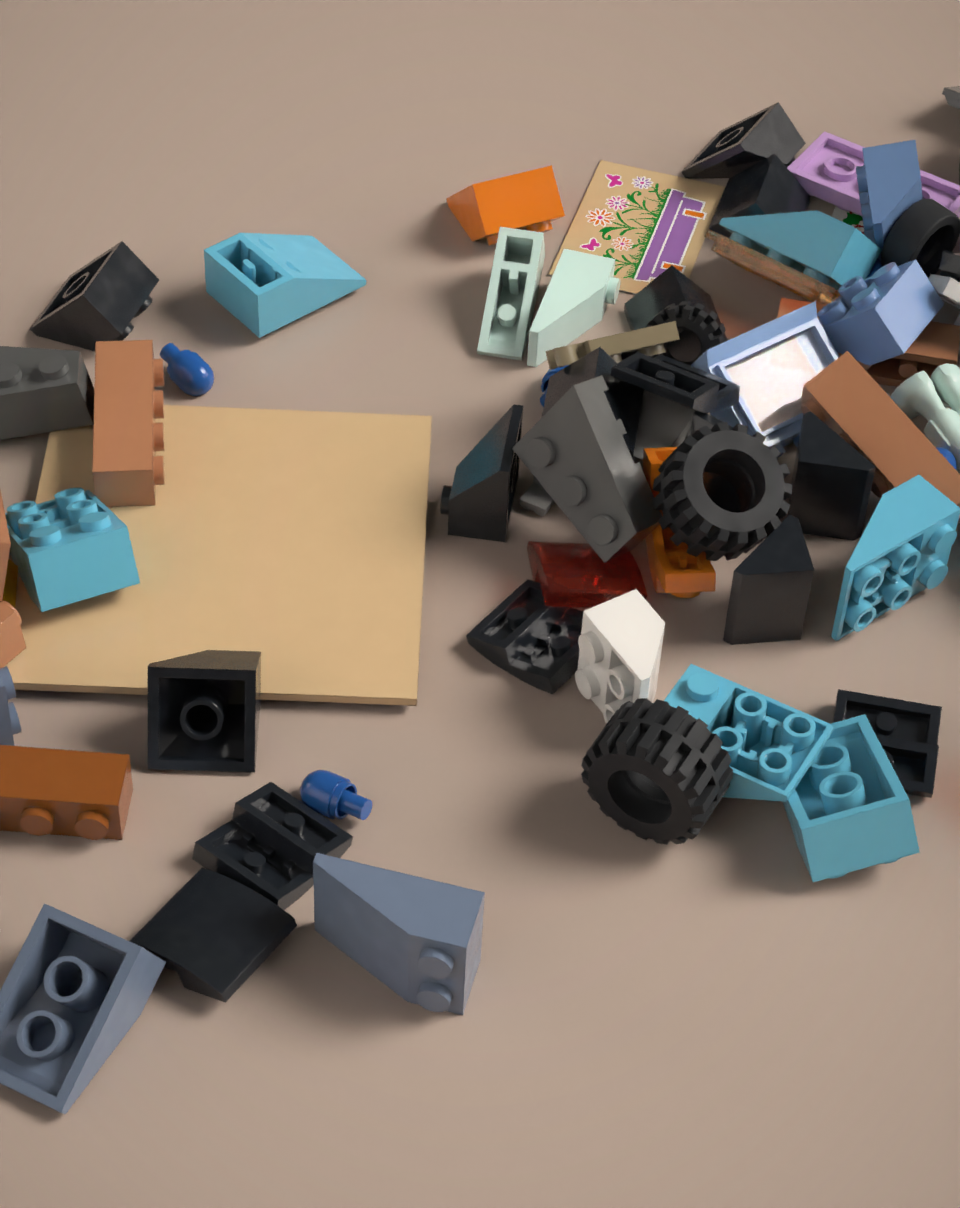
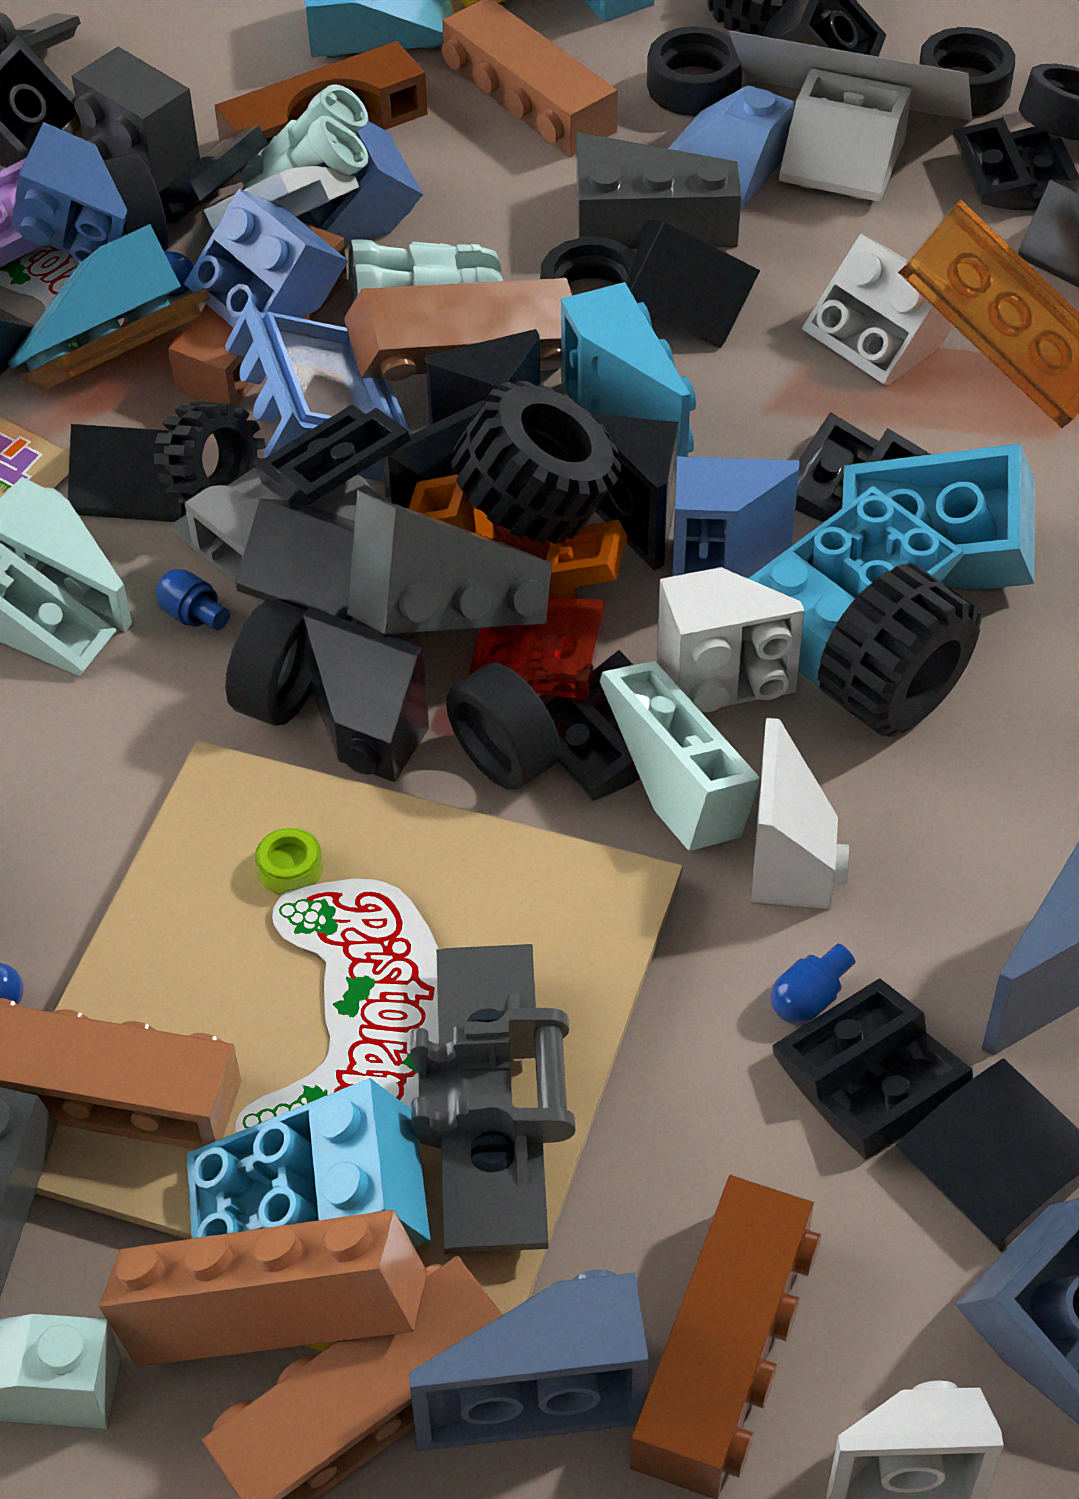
camera: 70 degrees left, 5 degrees up
(163, 615) = (465, 1098): none -> dark grey piece
(204, 711) = (664, 1070): black slope -> none
(234, 561) = (375, 988): none -> sticker
(337, 482) = (288, 860): none -> lime tile
(462, 736) = (795, 830): none -> white slope
(489, 399) = (270, 664): none -> black tyre
(490, 558) = (503, 726): none -> black tyre
(505, 663) = (682, 759): none -> light aqua slope
(644, 340) = (222, 500): dark tan plate -> none
(757, 639) = (732, 513): none -> medium blue slope

